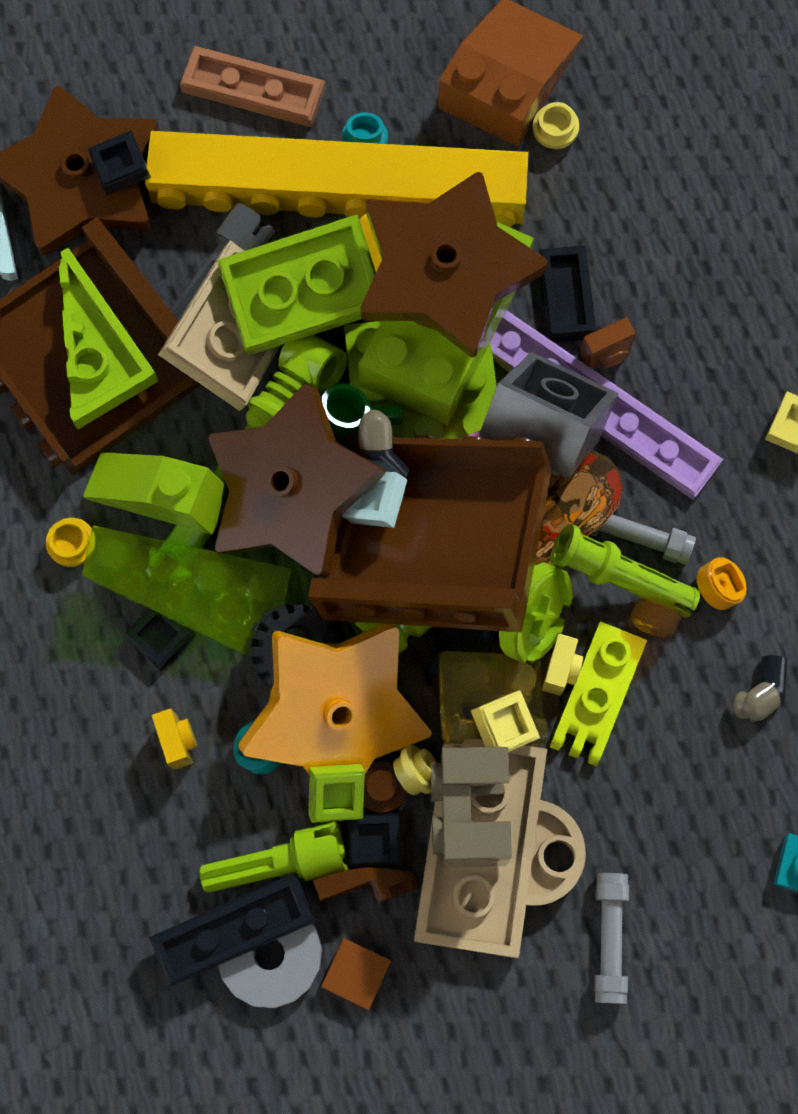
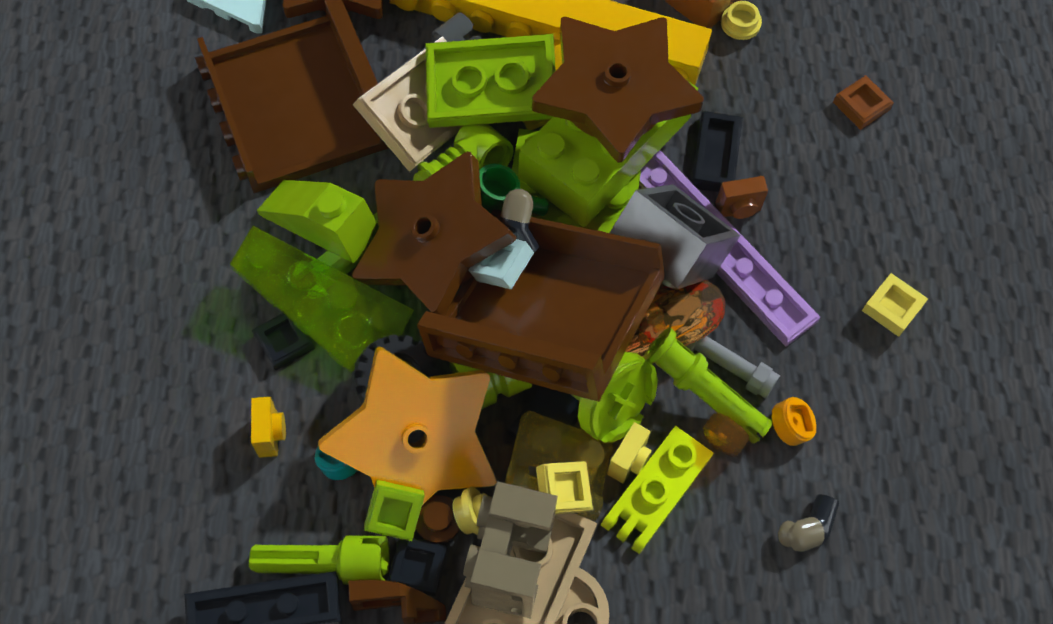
camera: 10 degrees right, 10 degrees down
(68, 541) = (228, 240): yellow plate -> none
(102, 357) = (308, 100): lime wing -> none
(713, 191) = (863, 102): none -> dark orange tile

